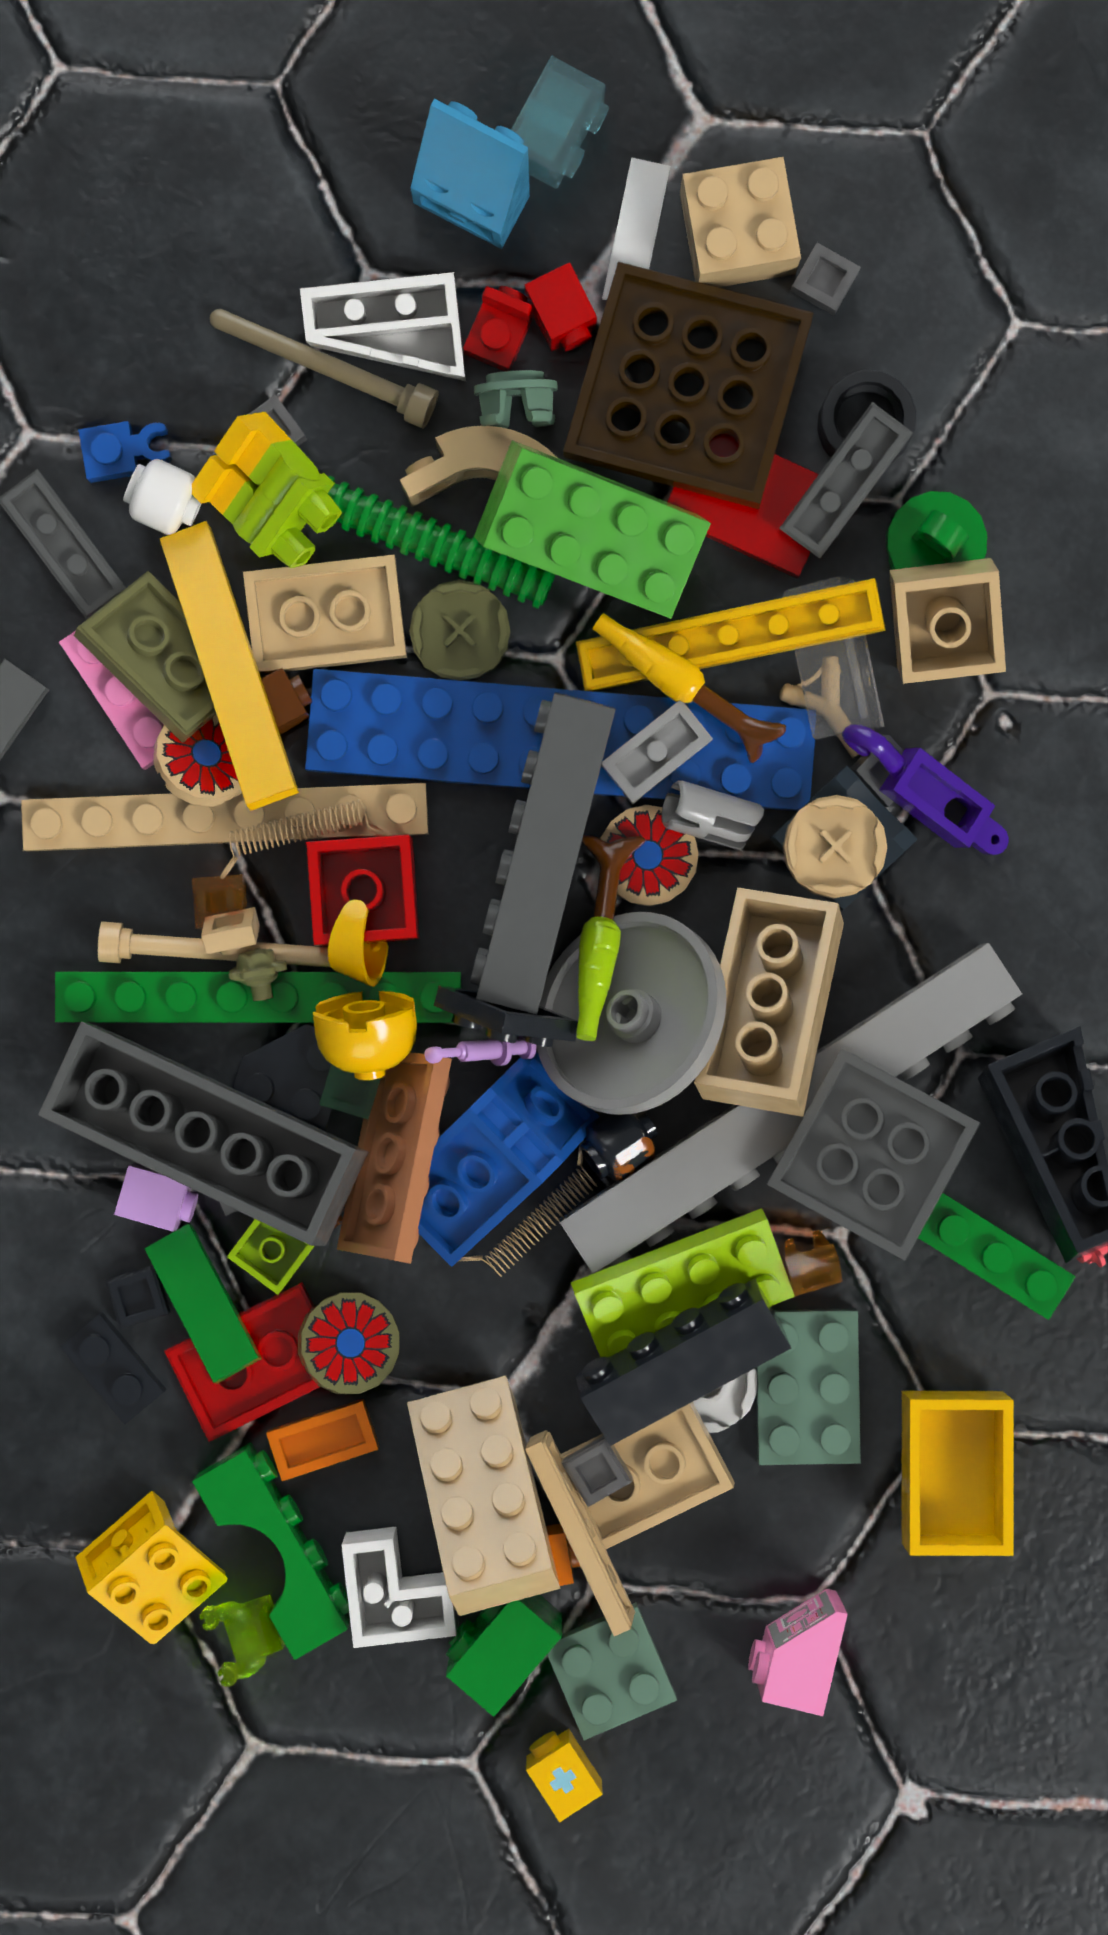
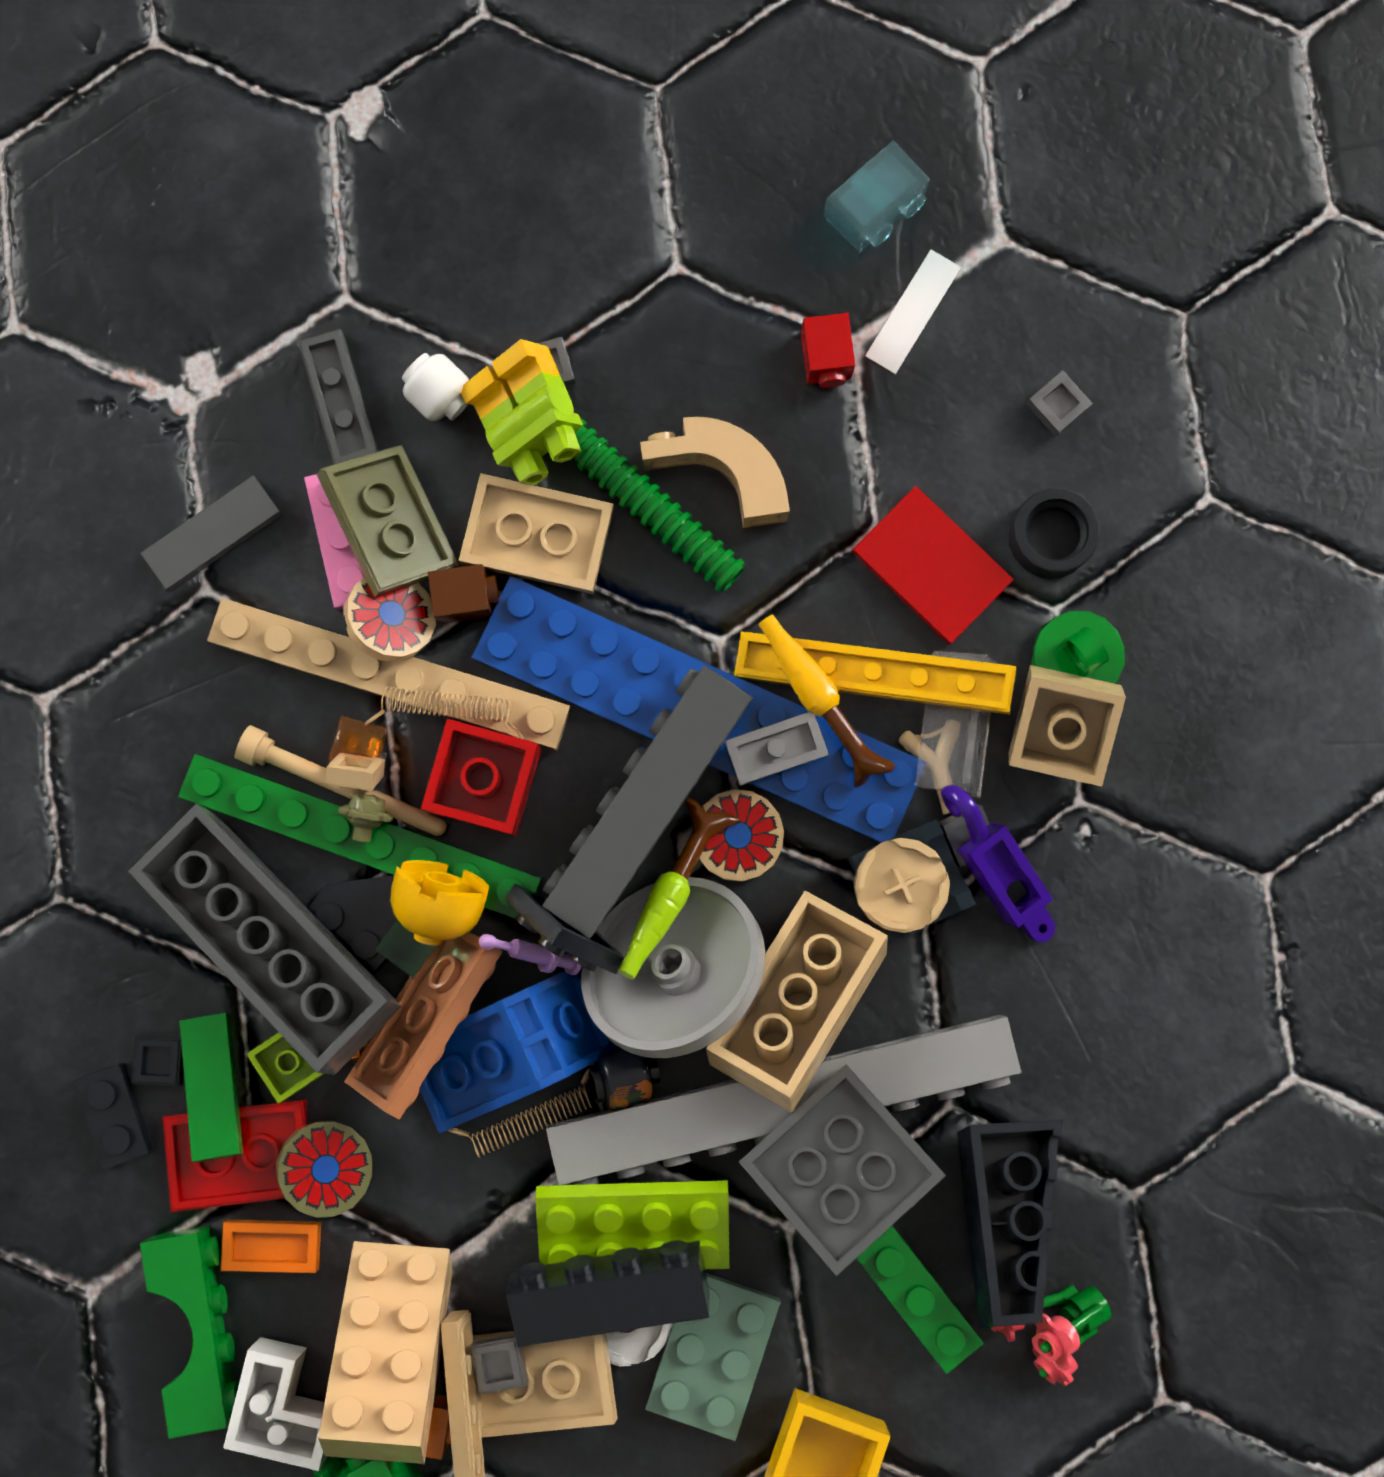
camera: 20 degrees right, 5 degrees down
(113, 450) = (411, 335): blue plate -> none
(148, 1570) = (73, 1308): yellow bracket -> none
(155, 1199) = (202, 982): lavender brick -> none
(229, 666) = (437, 548): yellow tile -> none
(249, 1633) = (137, 1400): clear neon green piece -> none
(347, 948) = (447, 823): yellow helmet -> none
(389, 321) = (680, 309): white wedge -> none
(411, 401) = (677, 384): dark tan piece -> none
(460, 631) = (646, 588): olive tile -> none
(471, 173) = (792, 209): dark azure slope -> none
(499, 327) = (770, 348): red bracket -> none
(499, 389) = (778, 403): sand green piece -> none
(591, 530) = (787, 540): bright green brick -> none
(685, 307) = (919, 480): dark brown piece -> none
(710, 815) = (804, 819): light grey arm -> none
(740, 223) = (1003, 332): tan brick -> none
(812, 1268) = (754, 1250): clear orange tile -> none
(846, 480) = (1019, 575): dark grey tile -> none

